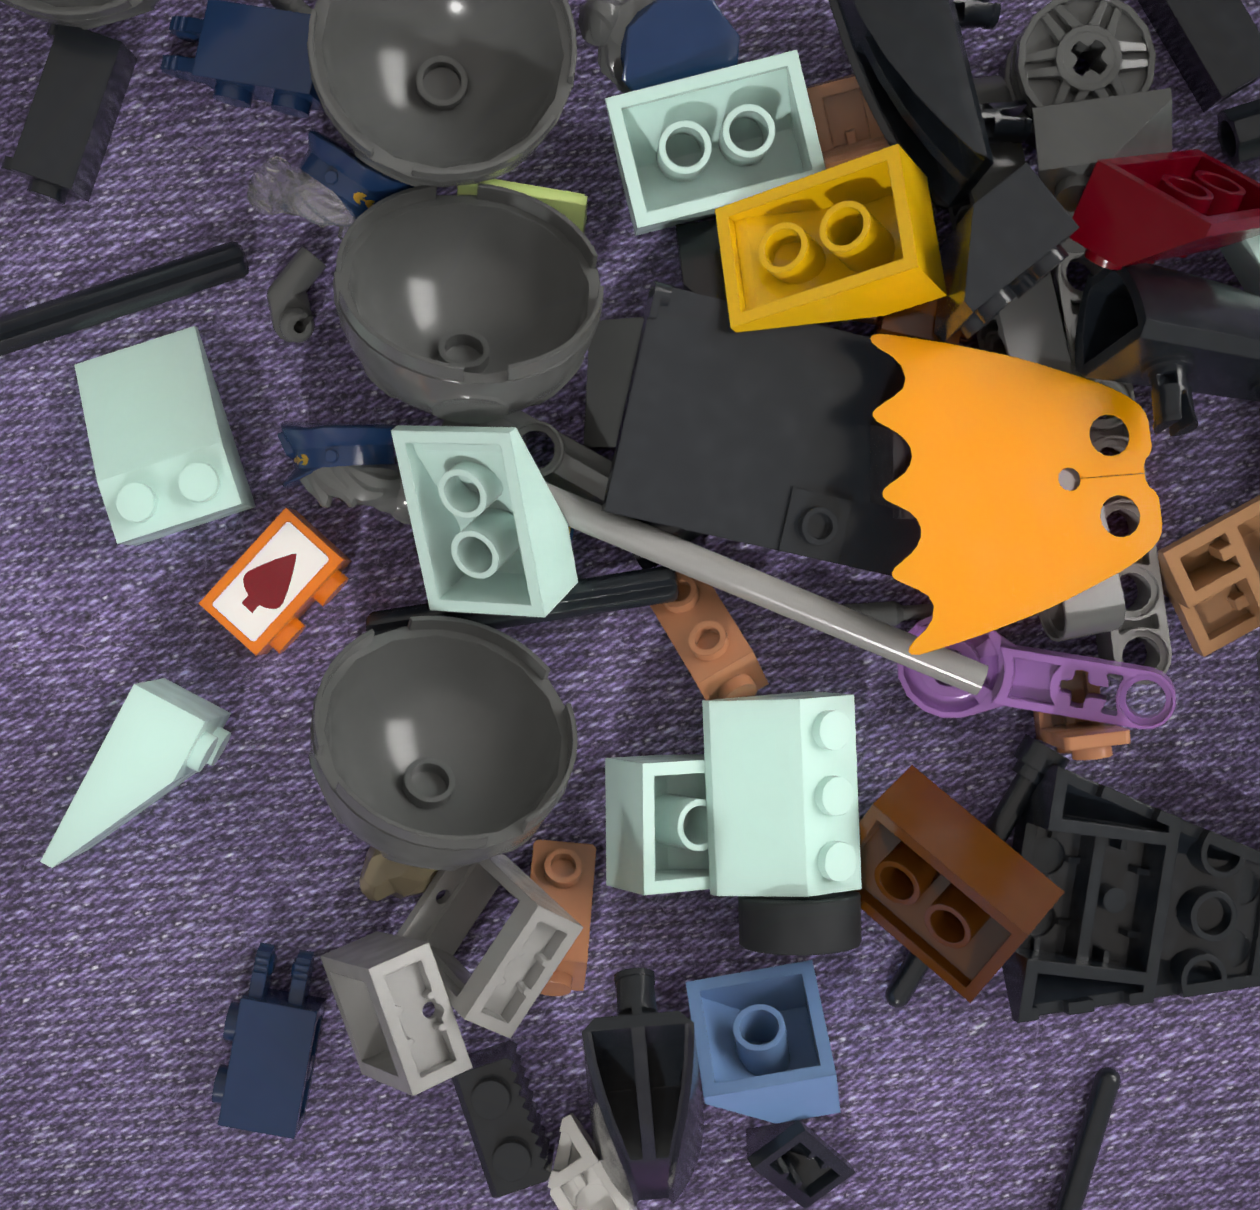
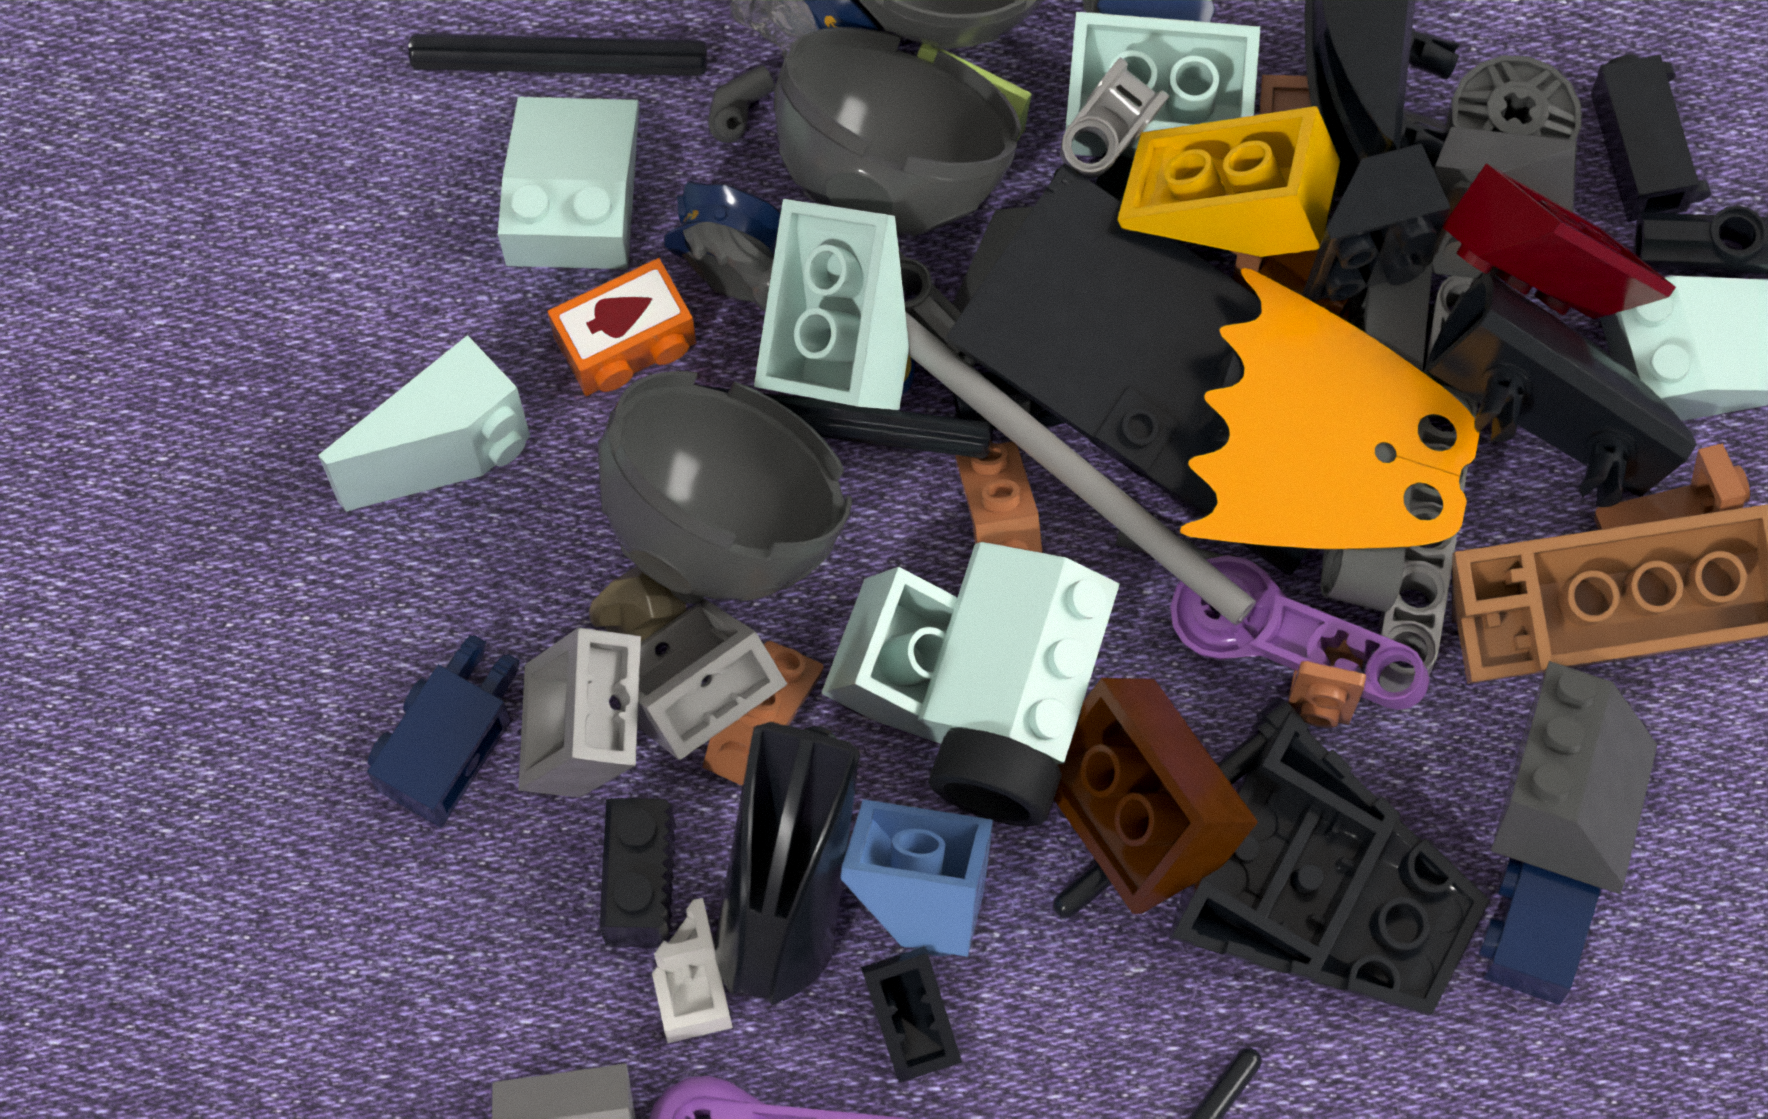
camera: 20 degrees right, 20 degrees down
(687, 215) = (1112, 117): none -> light grey piece

